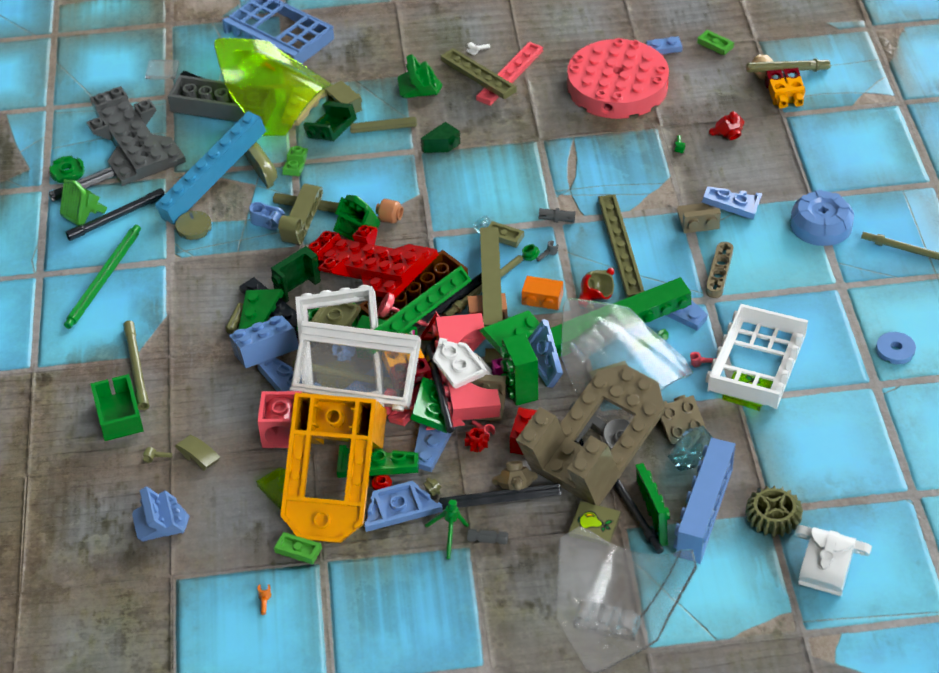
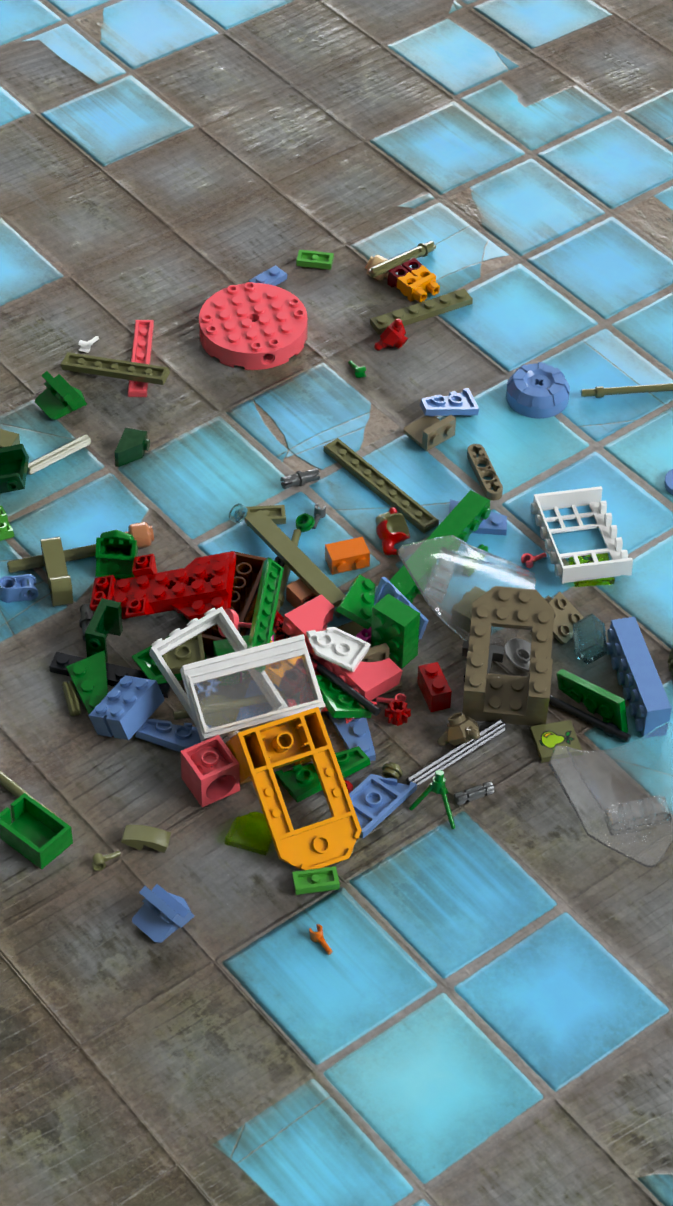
camera: 35 degrees left, 0 degrees up
(783, 115) = (423, 310): none -> olive plate

